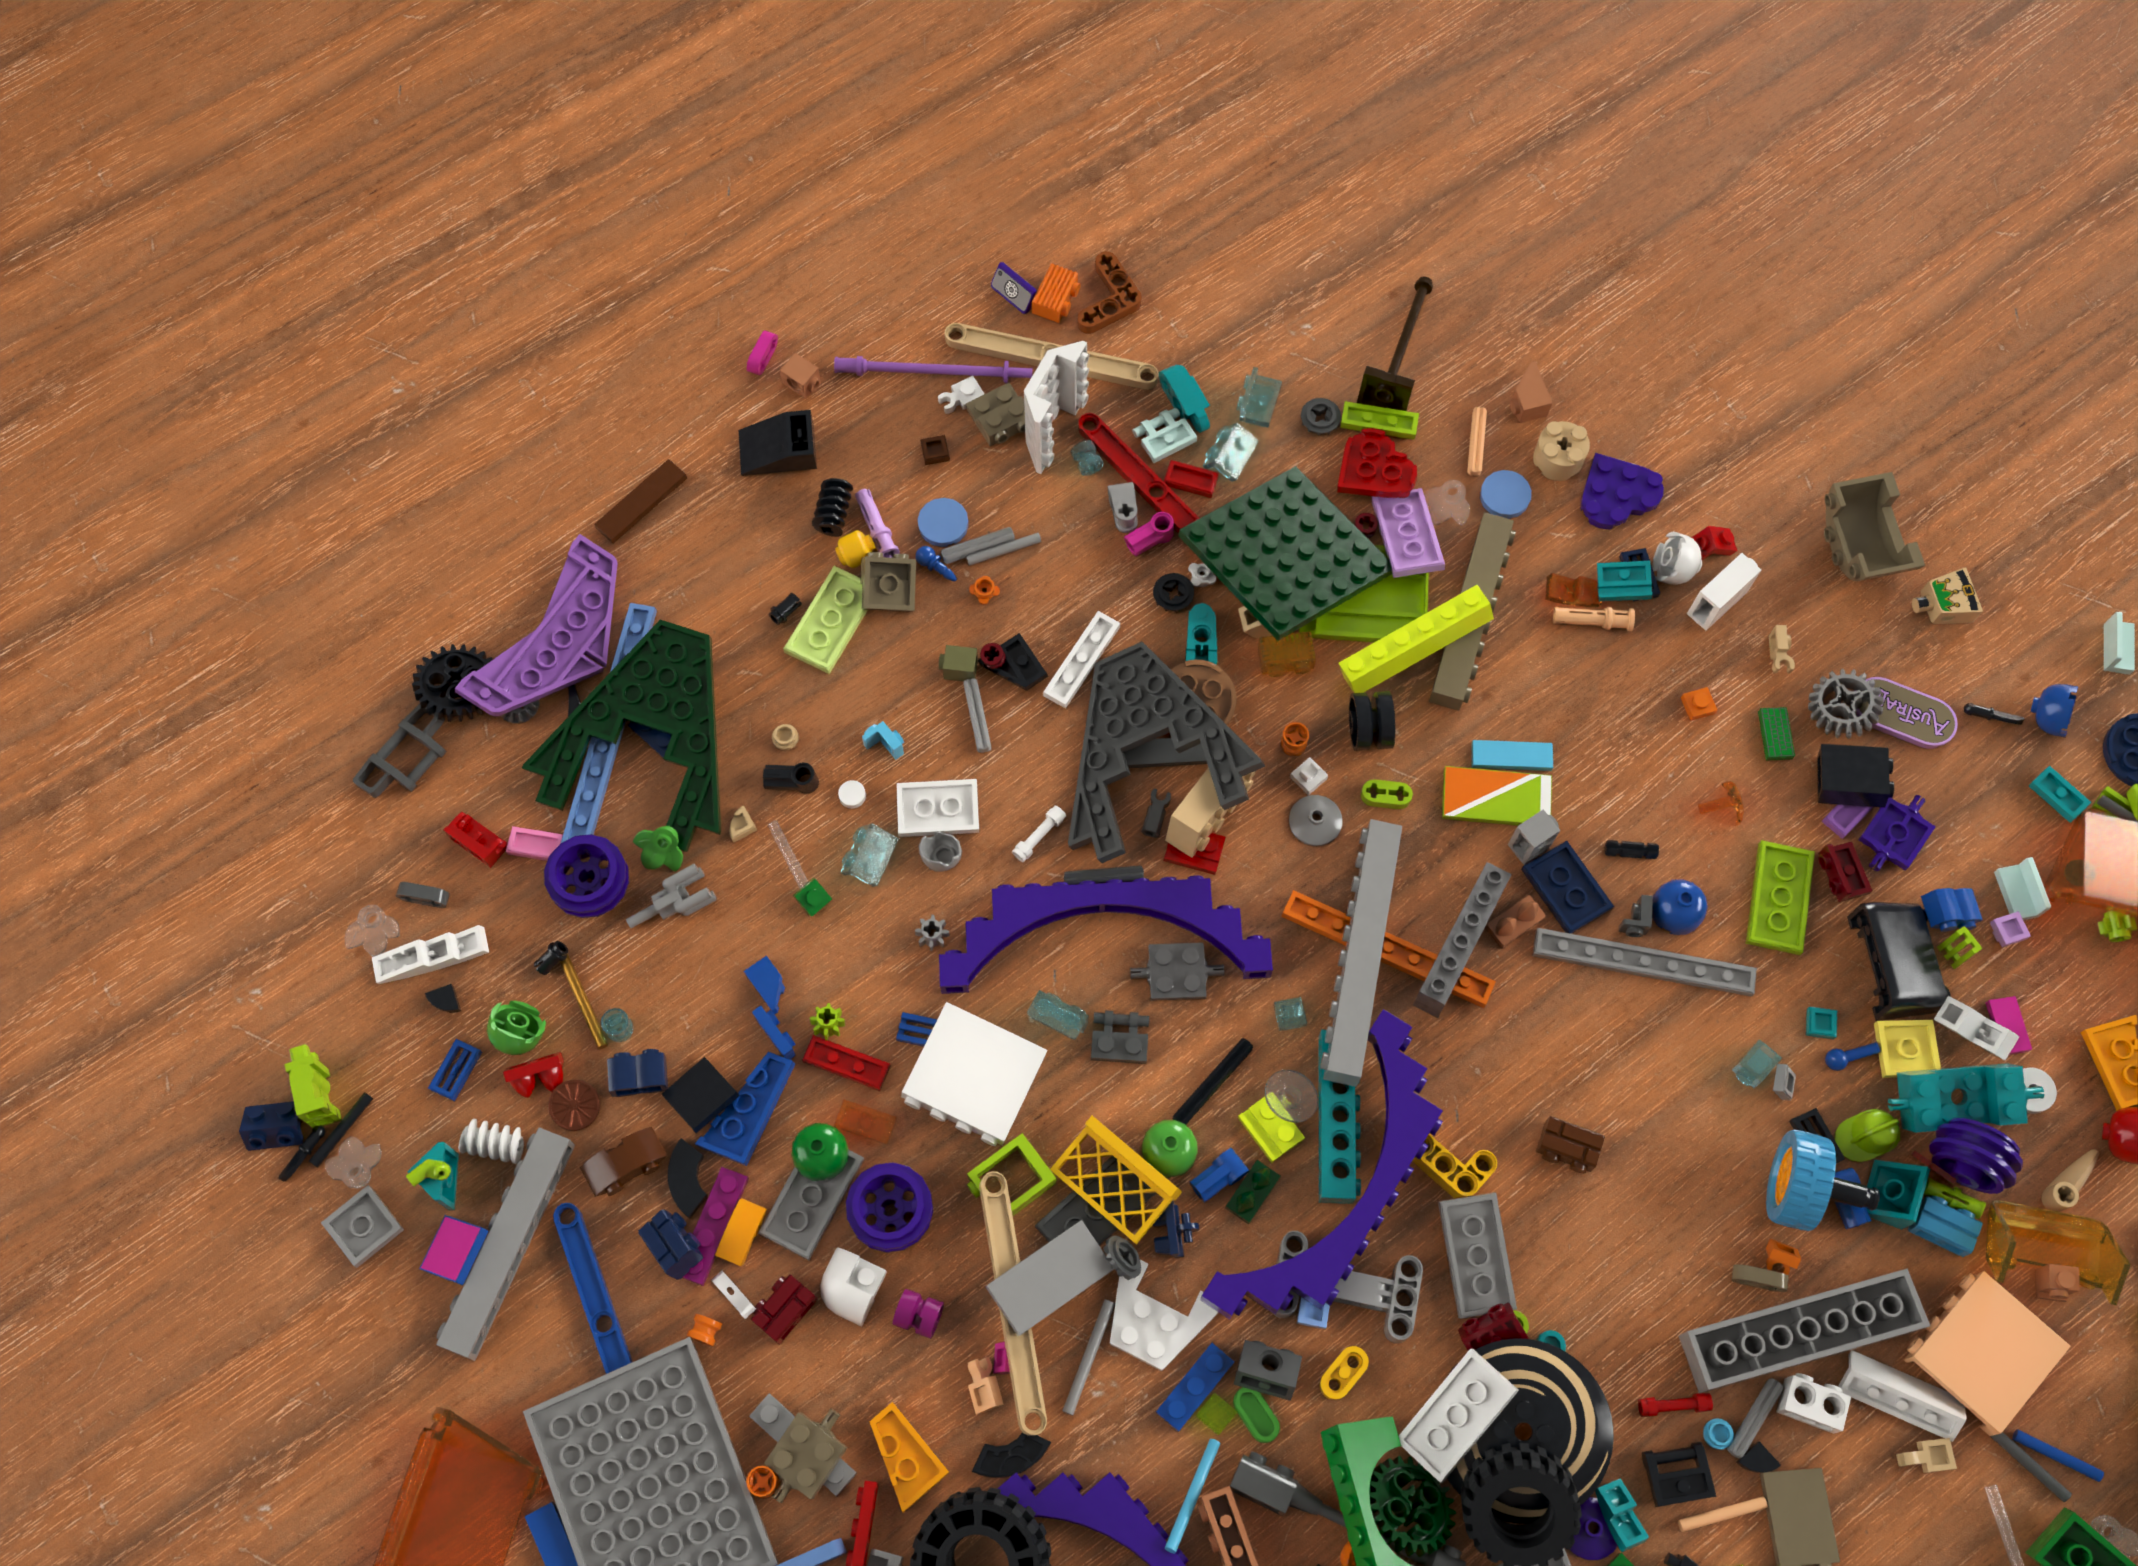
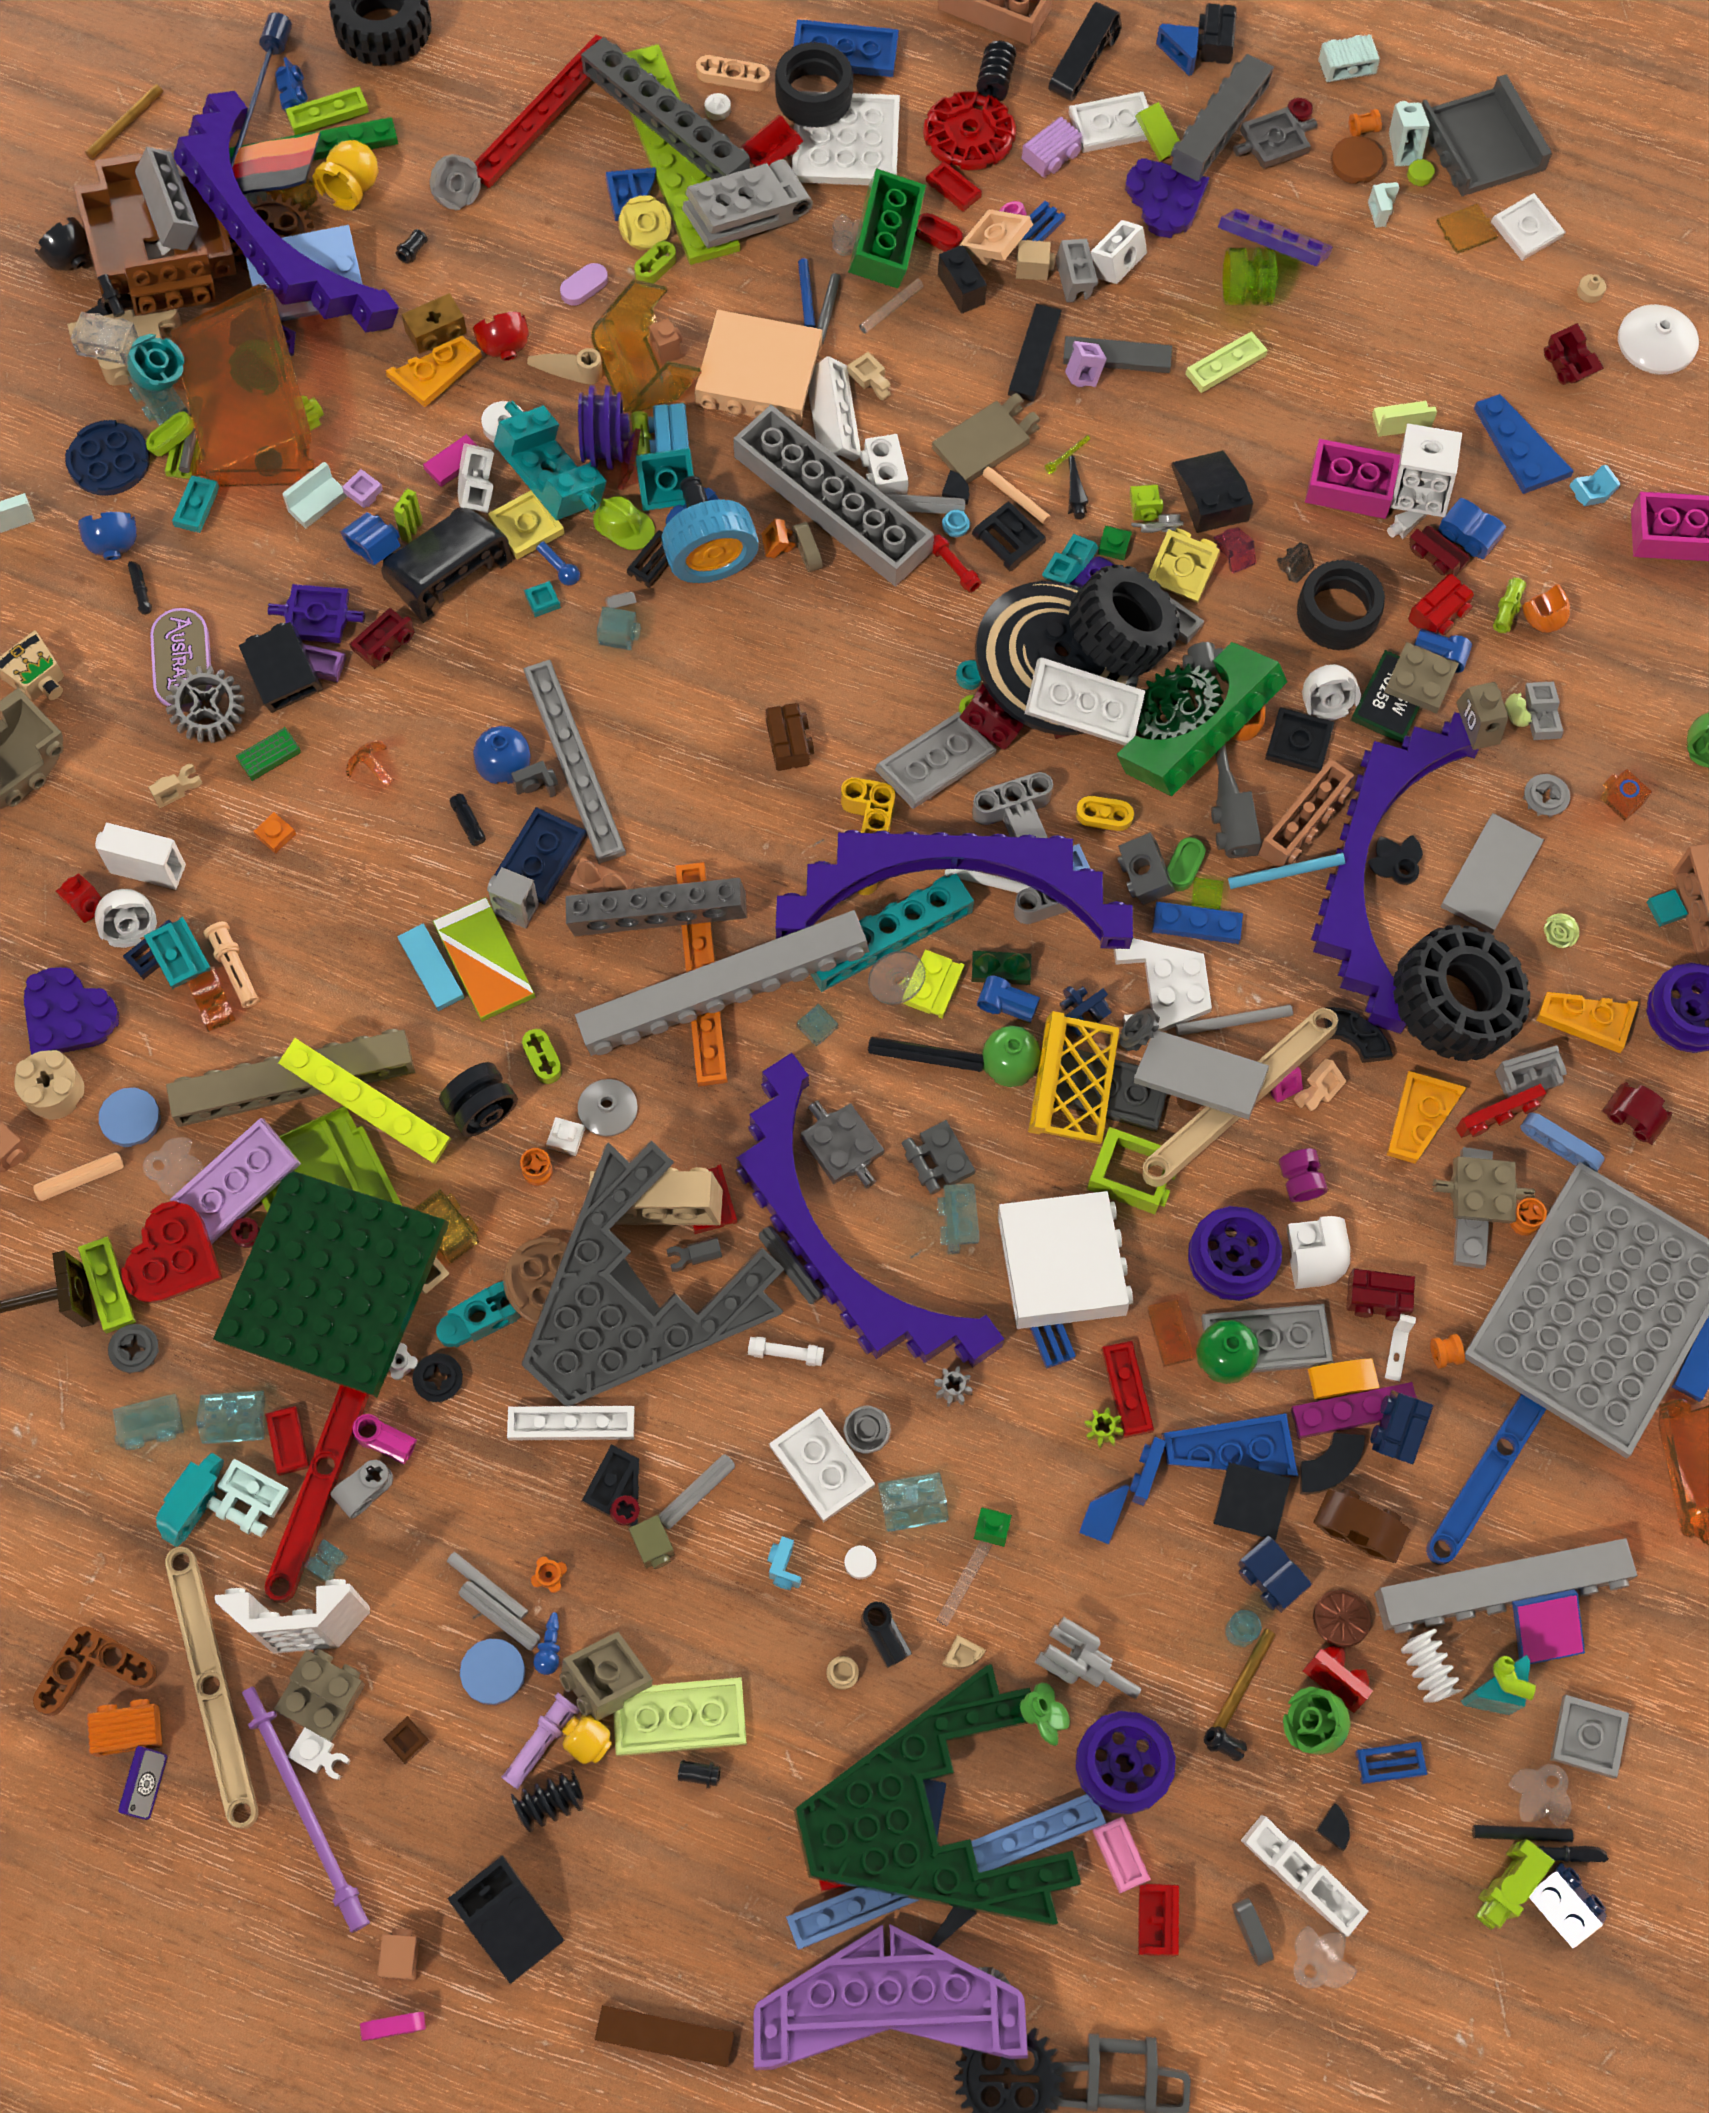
camera: 125 degrees left, 0 degrees up
(1780, 897) = (438, 680): lime tile -> none

